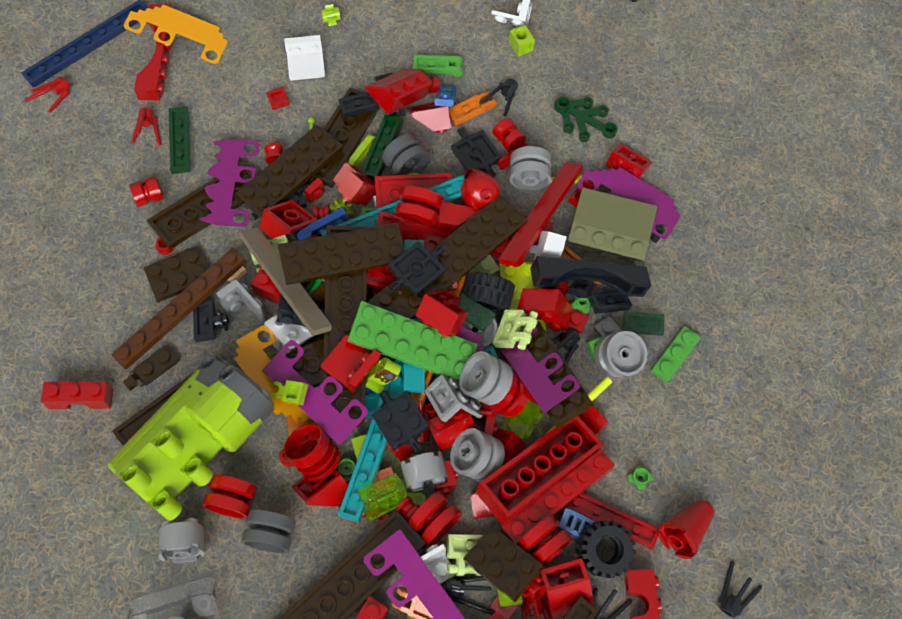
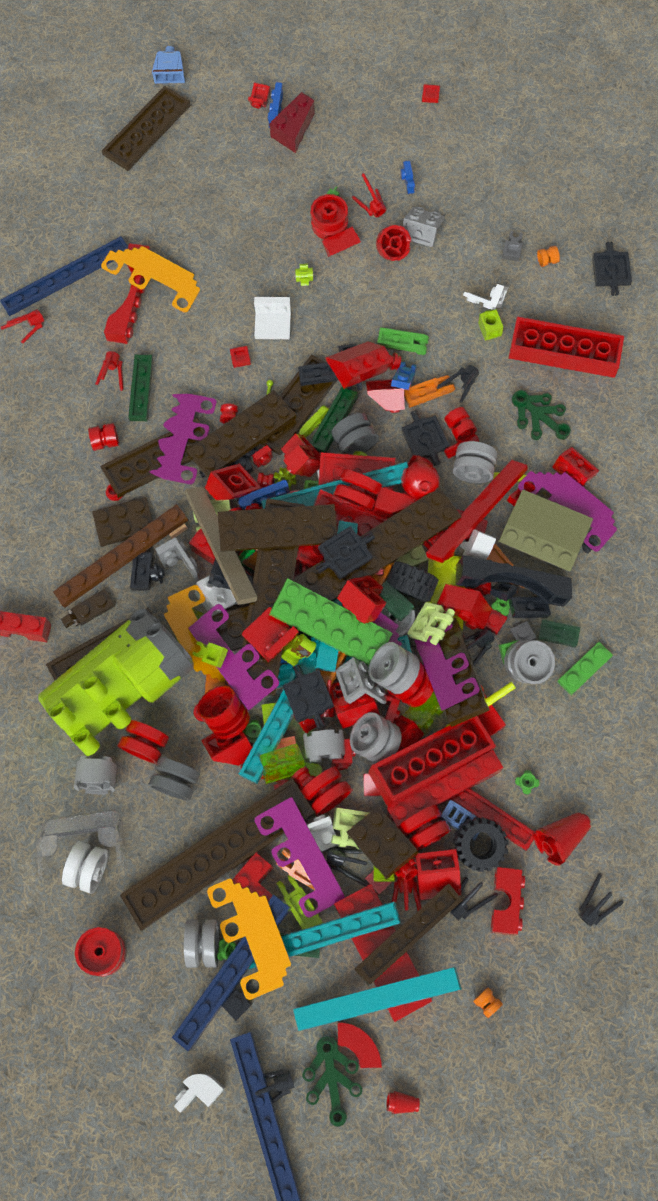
camera: 15 degrees right, 5 degrees up
(598, 51) = (566, 347): none -> red brick

